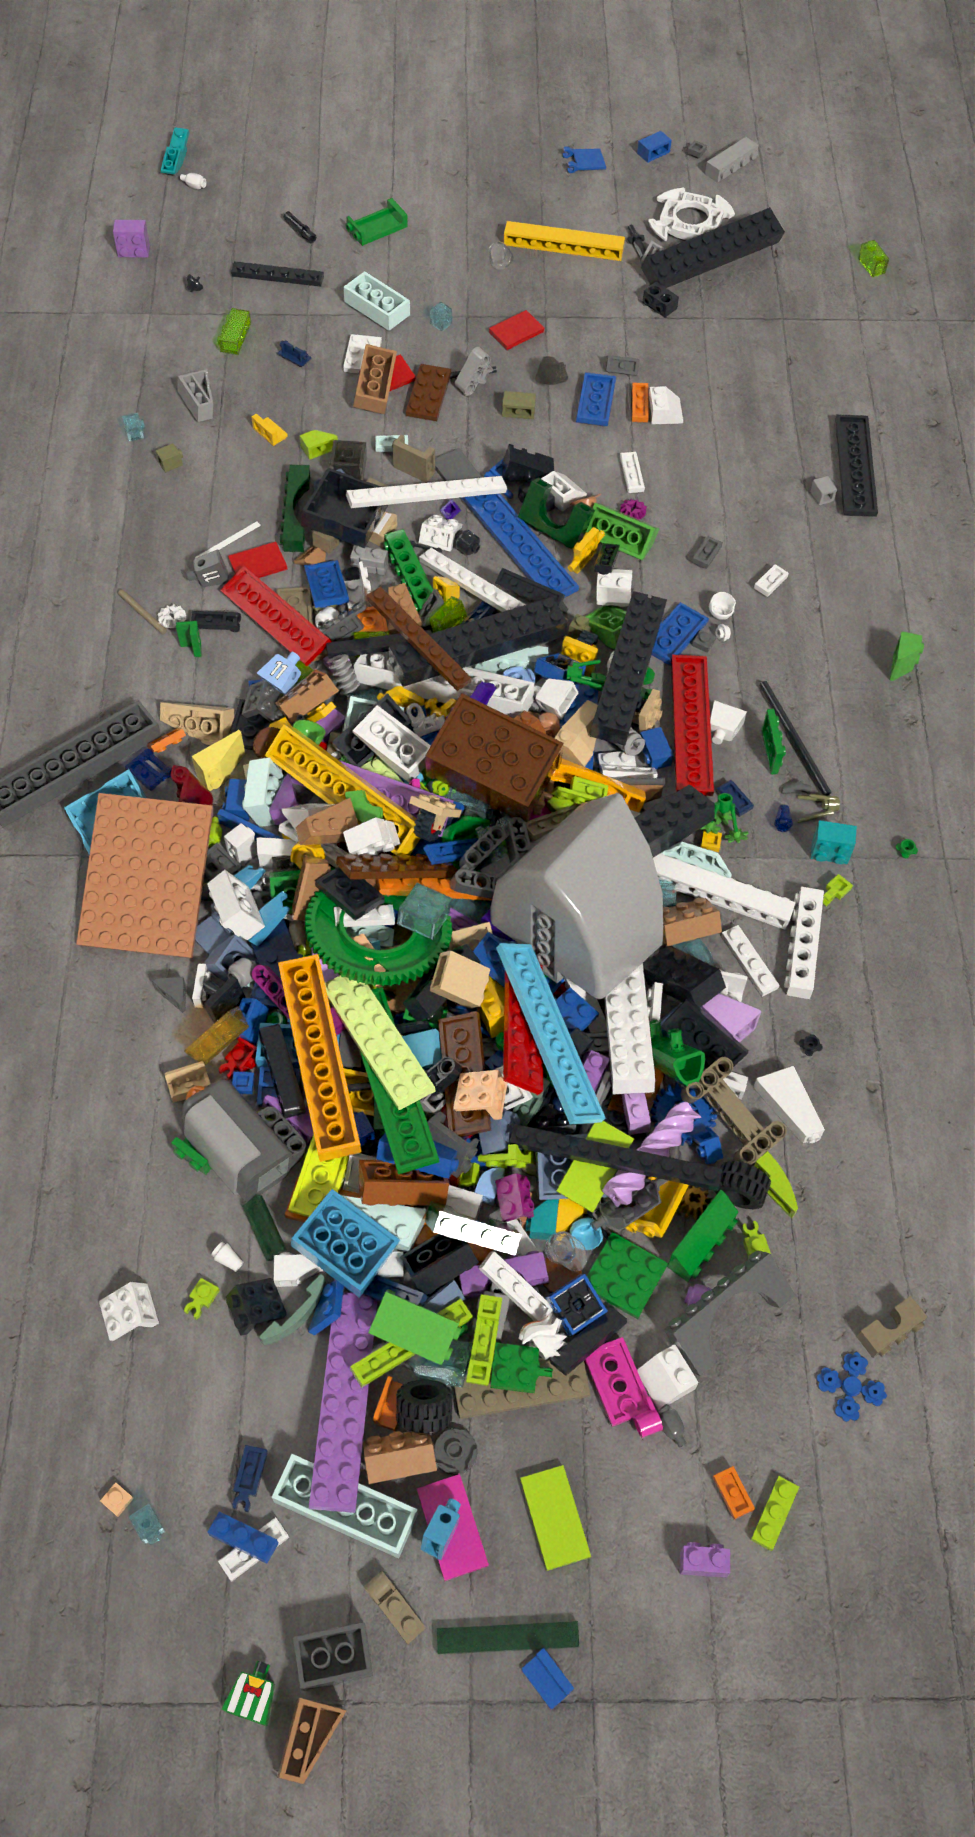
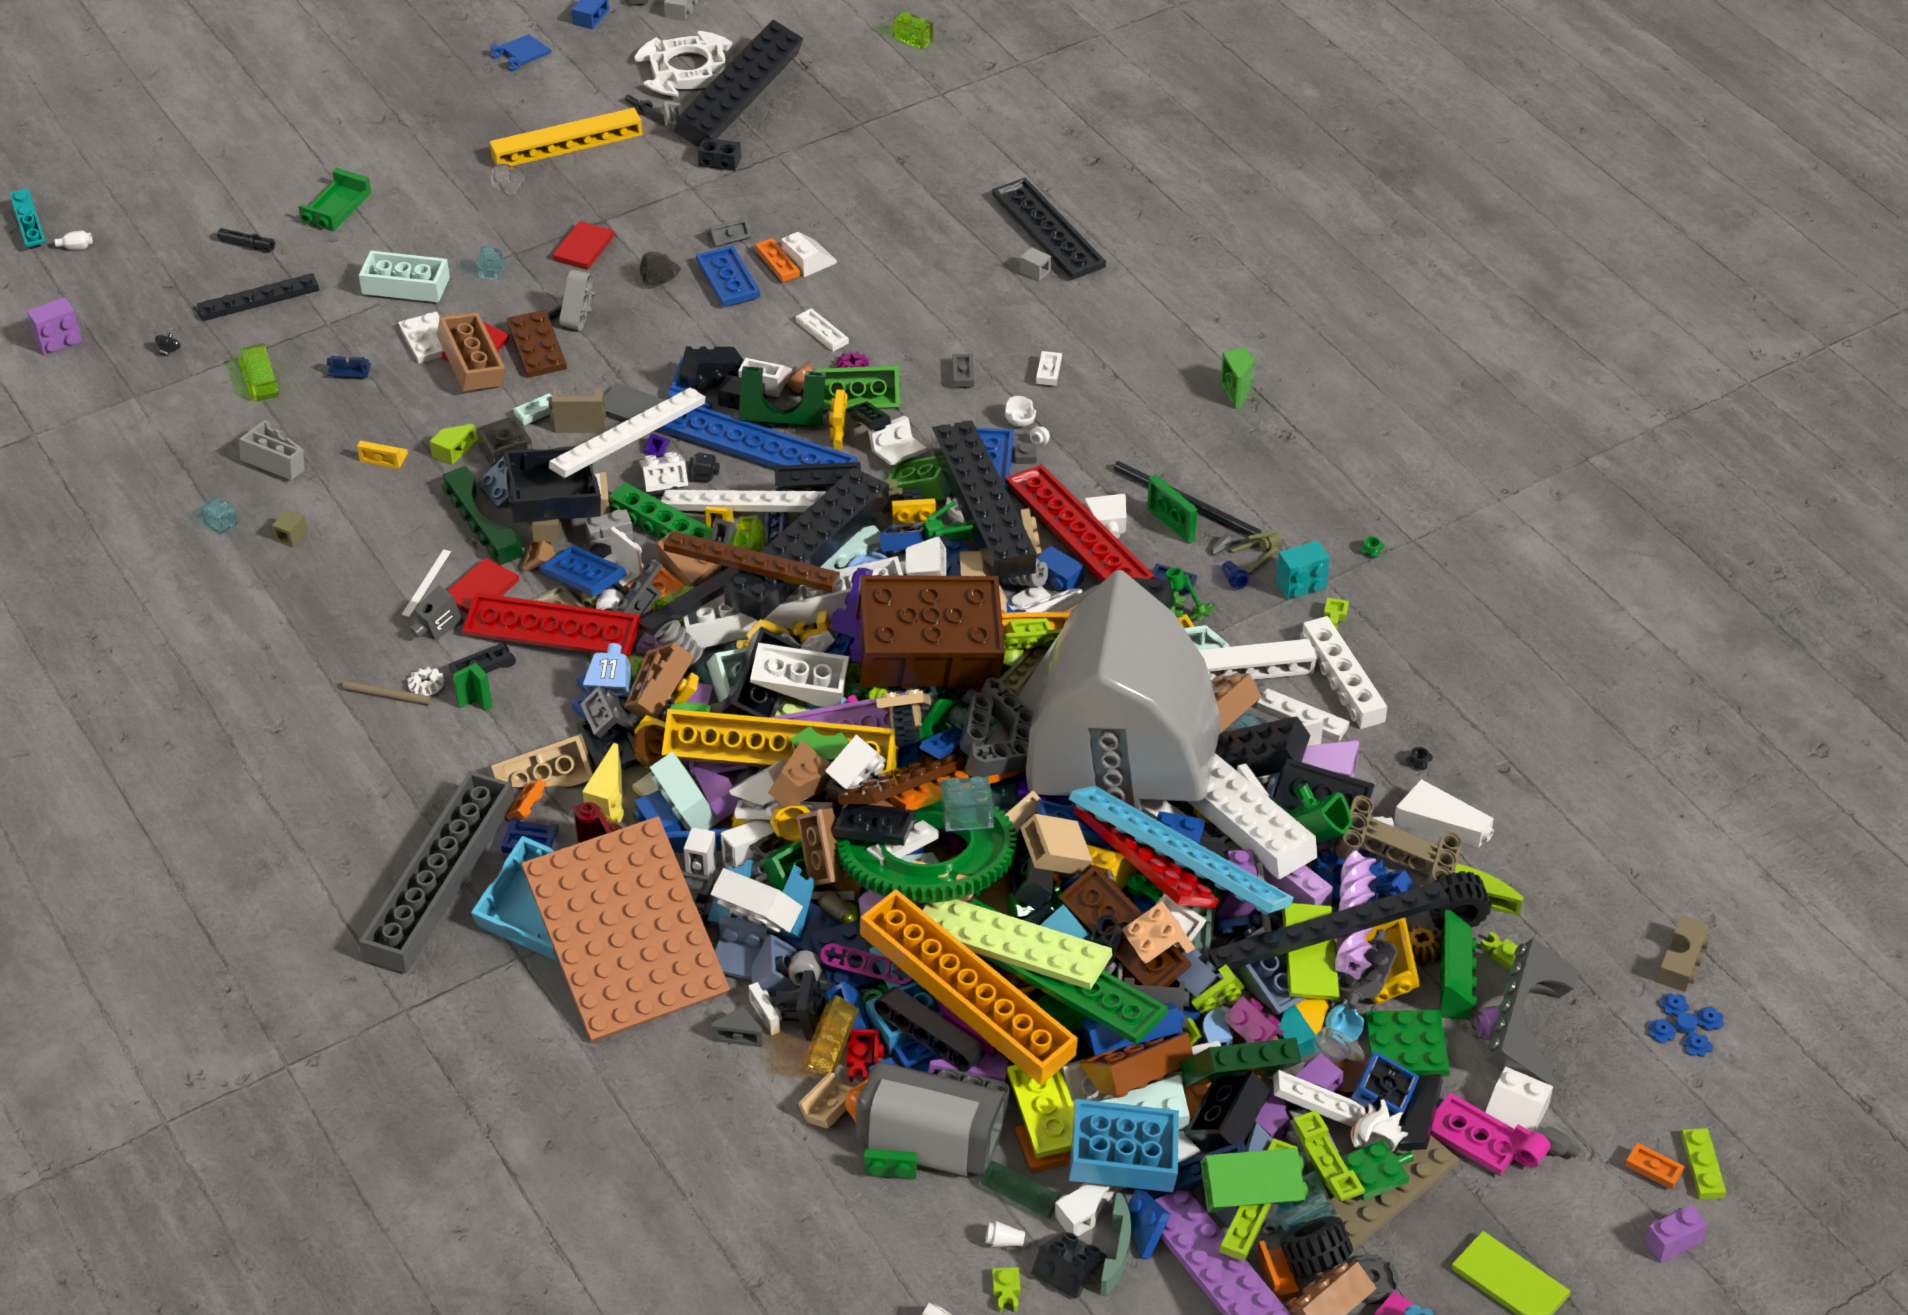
camera: 30 degrees left, 15 degrees down
(519, 405) = (649, 314): olive brick -> none

